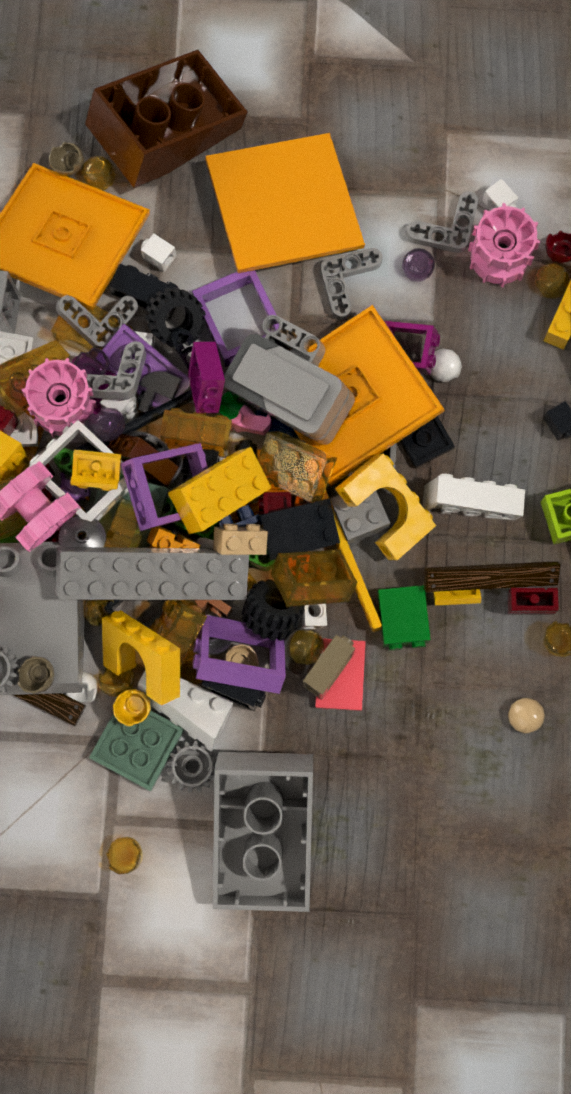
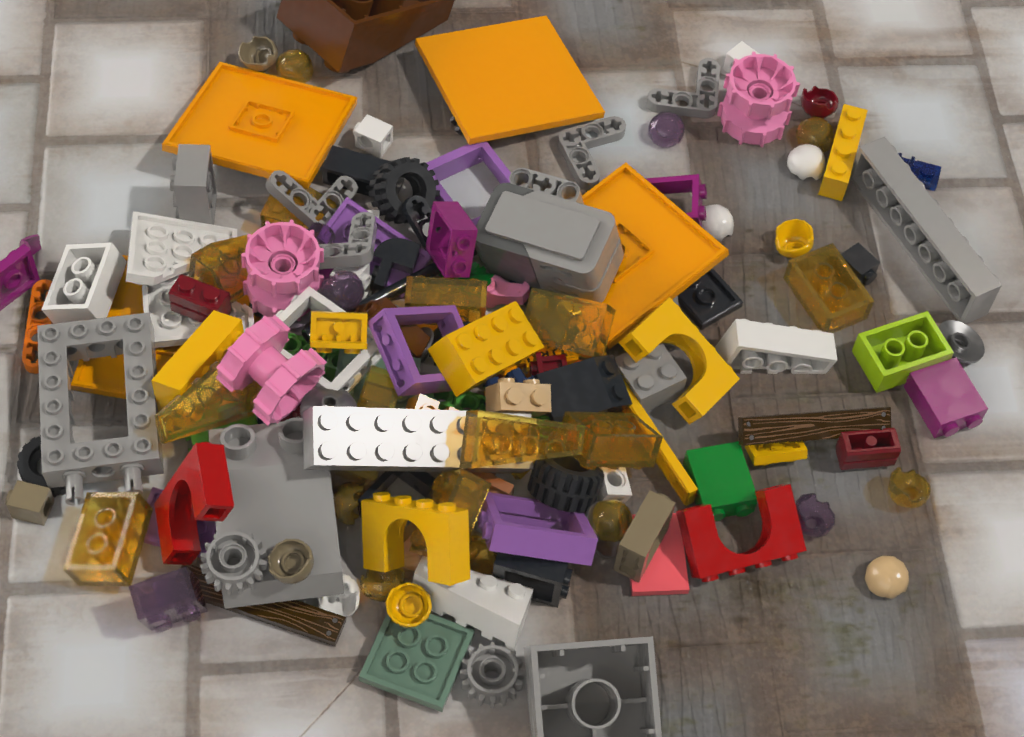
camera: 15 degrees left, 20 degrees down
(227, 583) = (508, 438): none -> clear yellow wedge
(441, 676) = (779, 537): none -> red arch
(475, 657) = (814, 516): none -> hair
(510, 389) = (794, 238): none -> yellow hair
(530, 444) = (828, 289): none -> clear yellow brick
(538, 308) = (807, 162): none -> white hair

